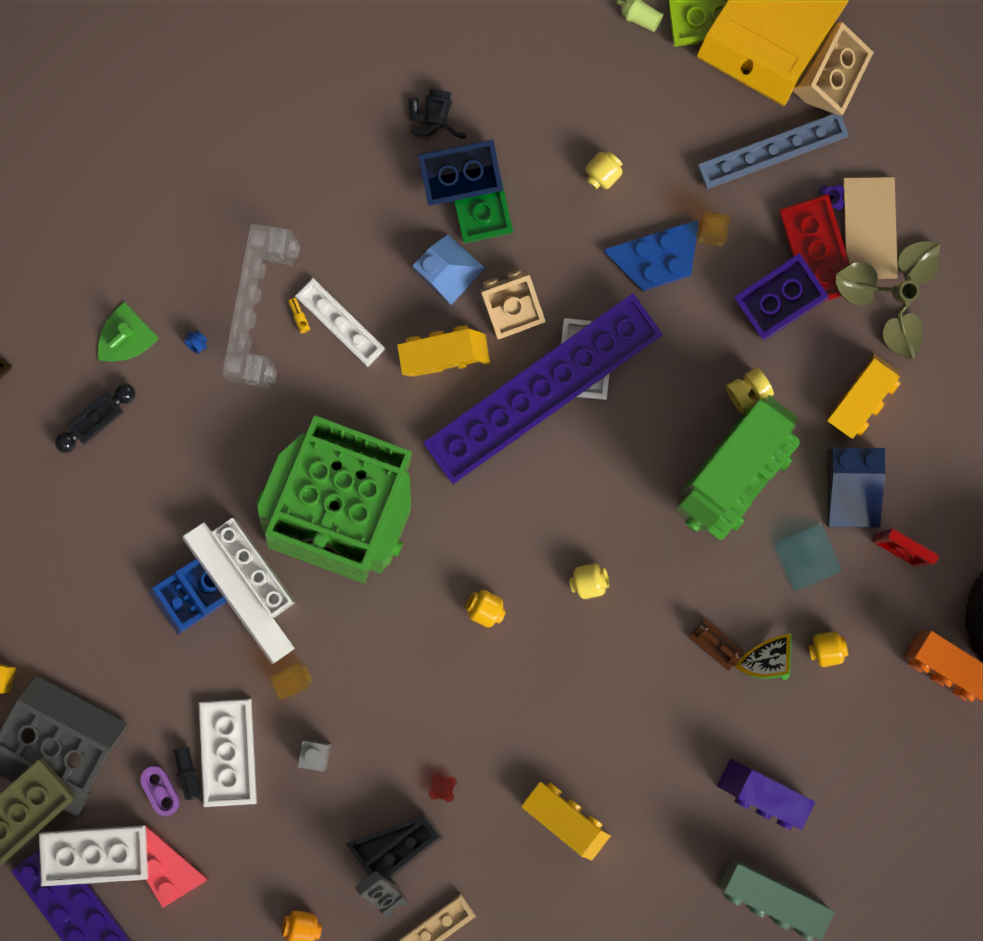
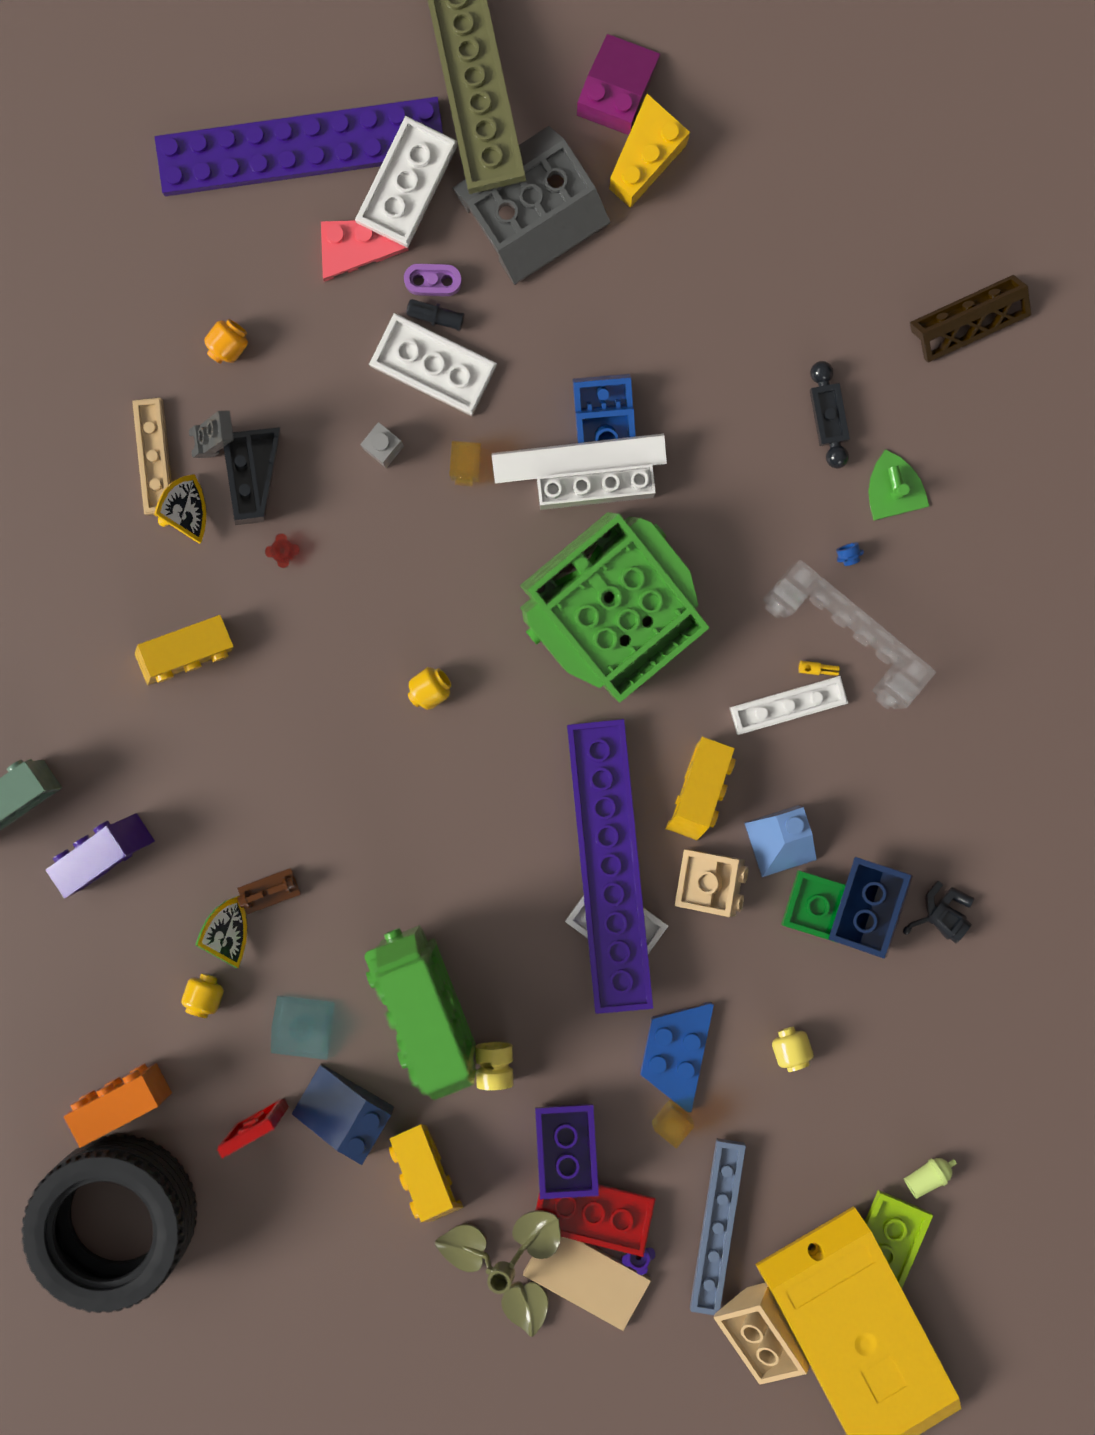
camera: 120 degrees right, 5 degrees up
(452, 885) = (183, 507): none -> shield
(589, 581) = (398, 803): light yellow head -> none

